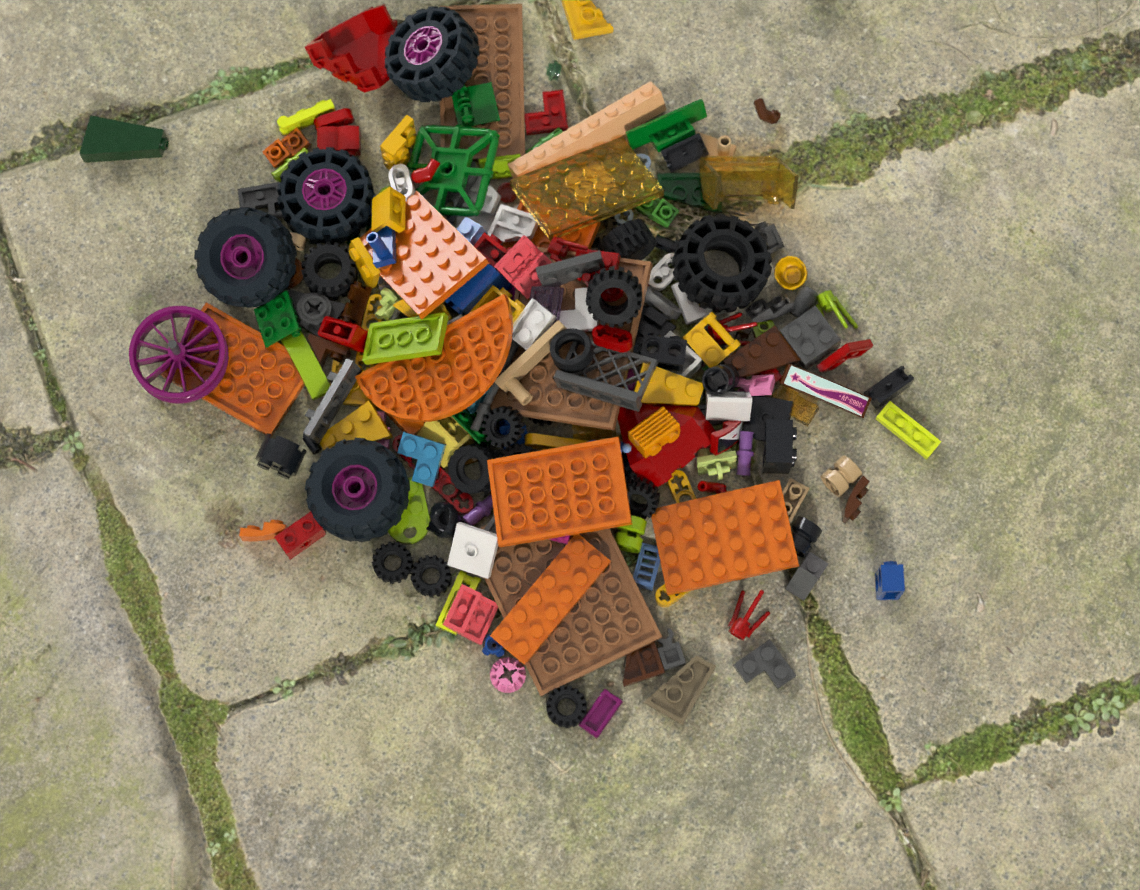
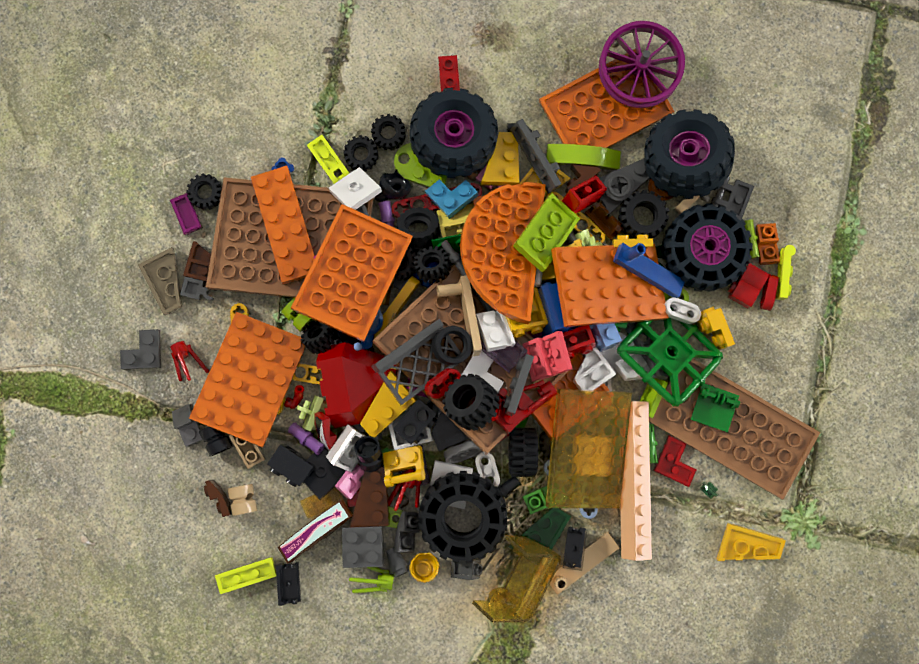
camera: 120 degrees right, 10 degrees up
(120, 140) = (849, 119): dark green slope -> none
(270, 529) = (467, 57): orange slope -> none
(277, 319) = (625, 153): green hinge -> none
(280, 455) = (516, 95): black brick -> none
(356, 48) = (818, 345): red panel -> none
(388, 210) = (660, 282): yellow panel -> none
(425, 174) = (677, 332): red arm -> none
(432, 54) = (777, 396): black wheel -> none
(470, 614) = (312, 162): coral slope -> none
(503, 684) = (250, 158): bright pink gear -> none
(507, 193) = (628, 386): clear red plate -> none
(643, 583) = (258, 300): medium blue slope -> none
(654, 432) = (353, 372): light orange brick -> none
(669, 128) = (600, 548): green bracket -> none
(766, 115) = (571, 635): reddish brown arm -> none
(847, 351) = (330, 568): red tile -> none
(890, 581) = (138, 481): blue brick -> none

